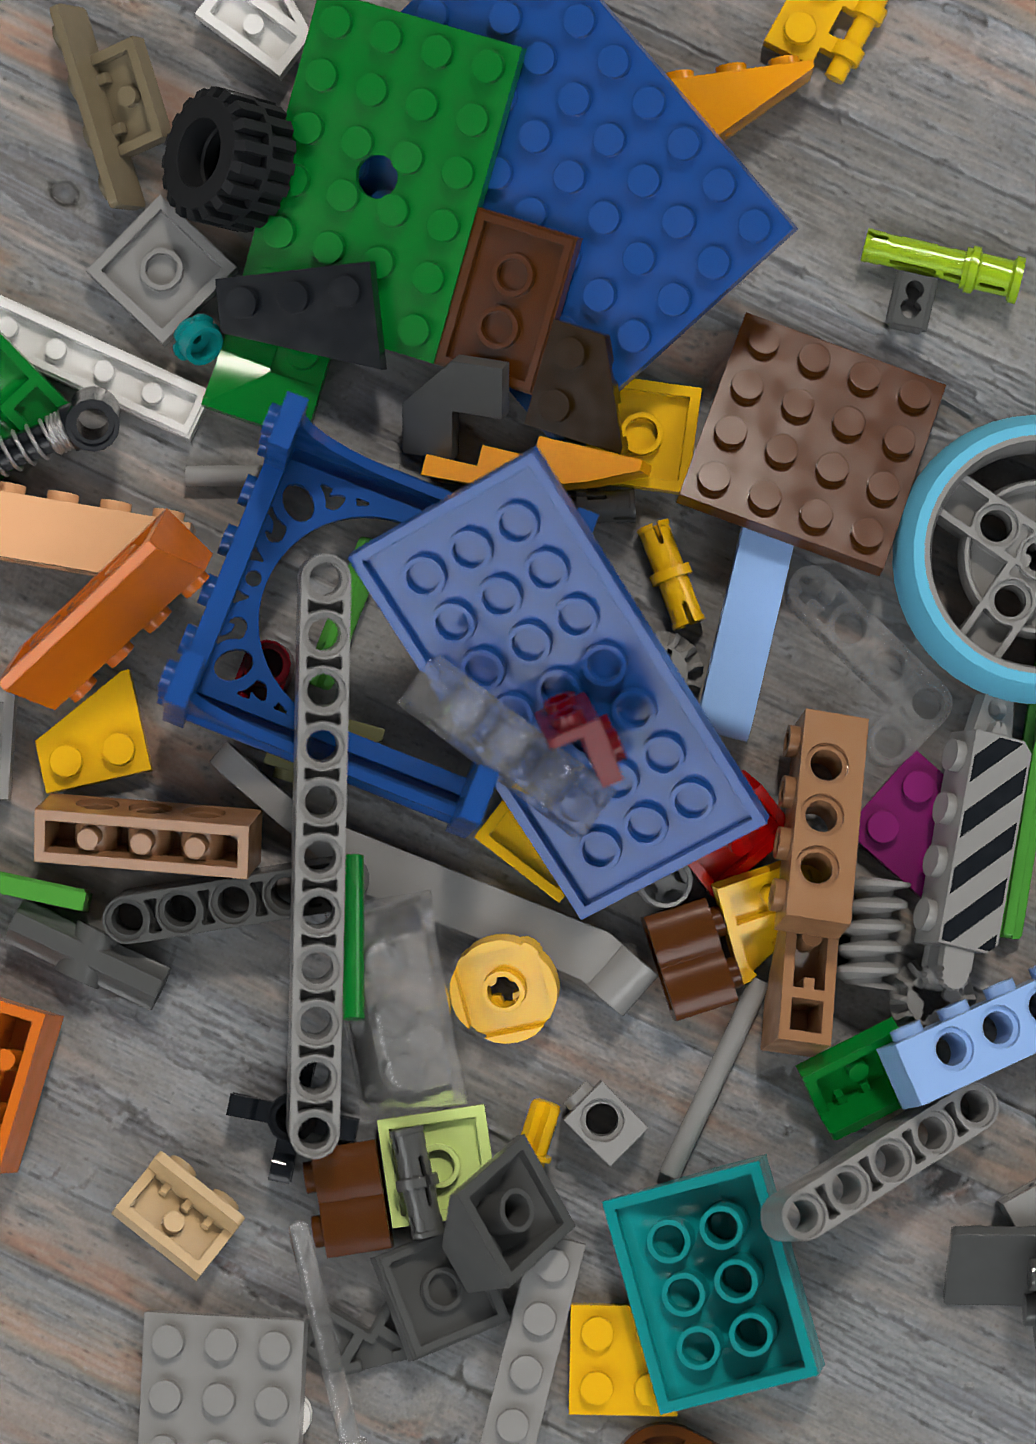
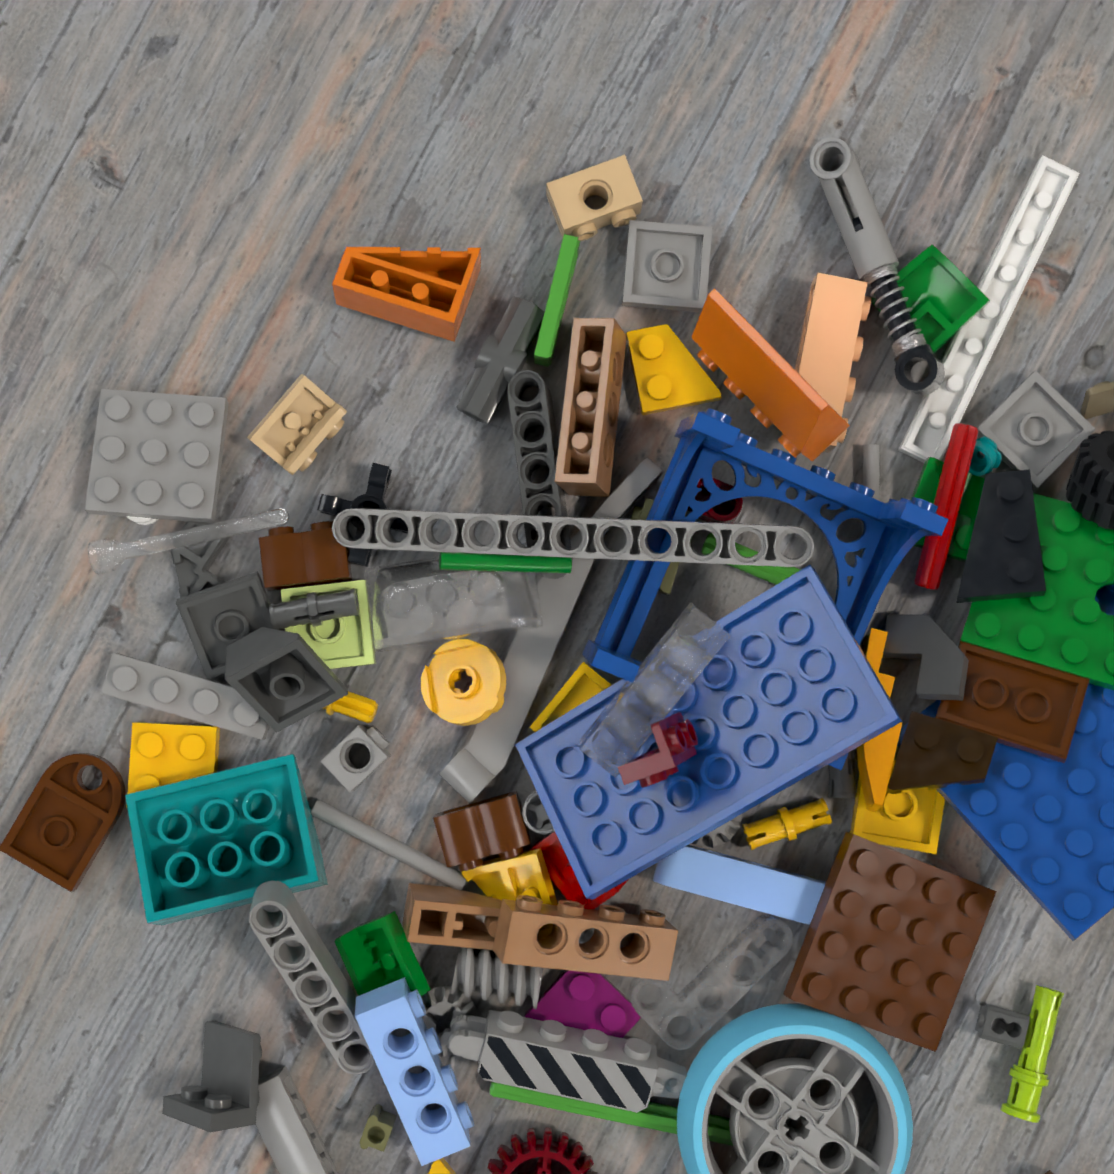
camera: 90 degrees right, 0 degrees up
(262, 381) = (948, 501): none -> red axle

